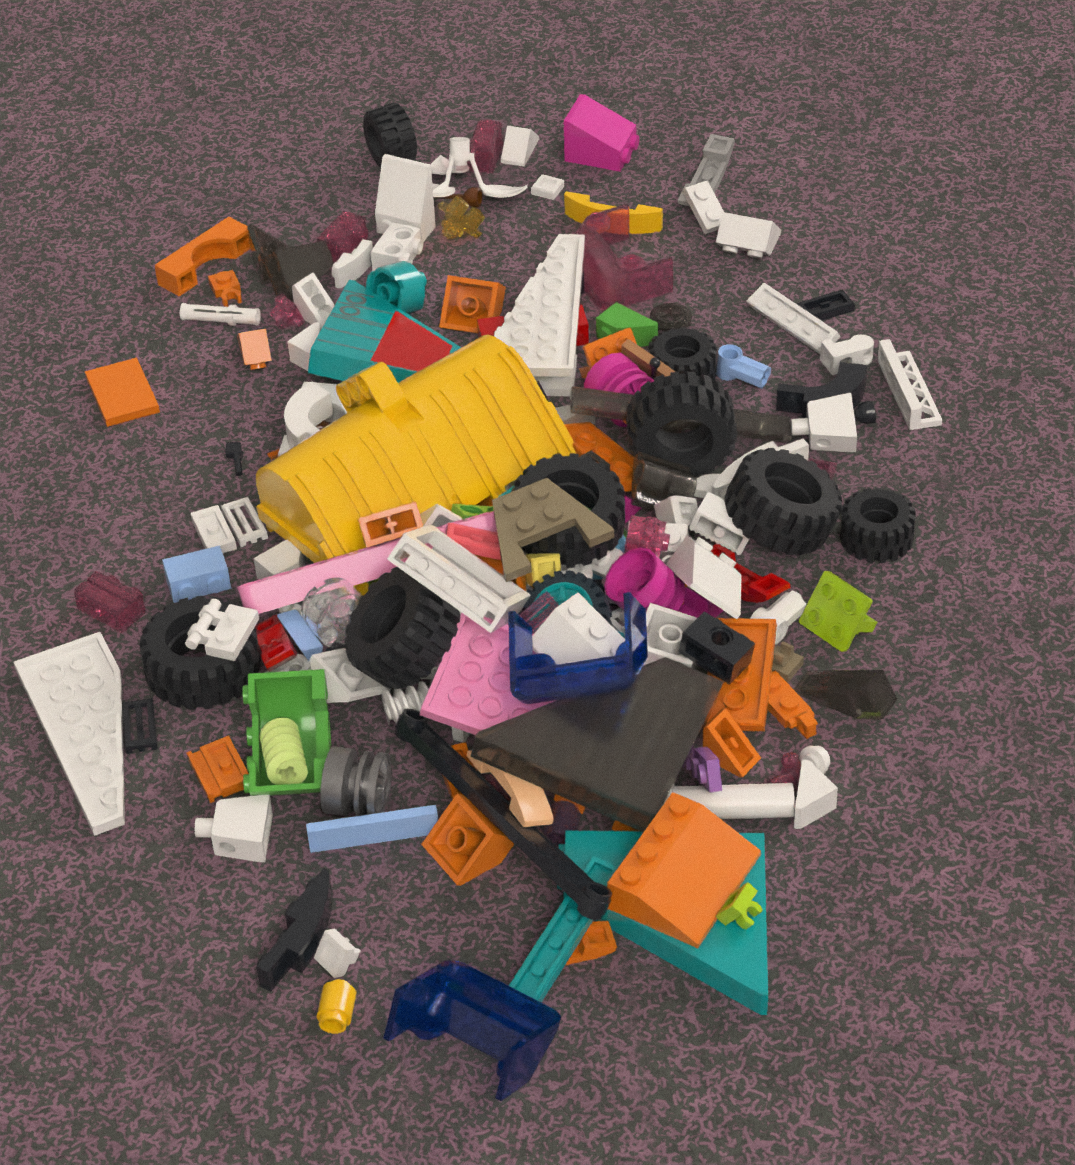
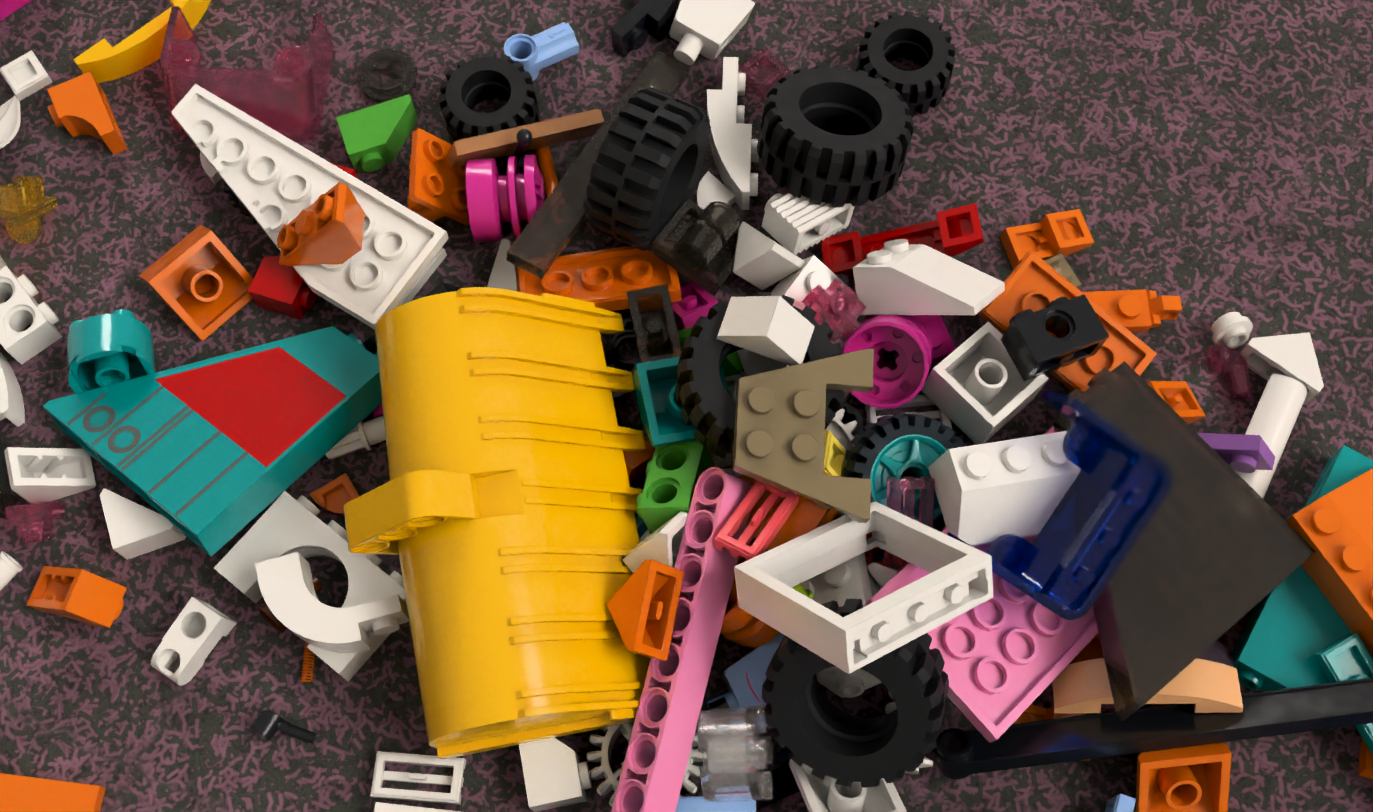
camera: 60 degrees left, 25 degrees up
(260, 398) = (190, 641): none -> white leg
(527, 311) = (325, 231): none -> orange slope
(542, 216) = (85, 111): none -> orange arch
(589, 481) = (767, 328): none -> white slope
(784, 610) = (995, 255): white piece -> none
(817, 653) = (1054, 234): none -> orange slope
(837, 612) = (1022, 181): lime bracket -> none
(851, 692) = (1142, 241): clear smoke slope -> none

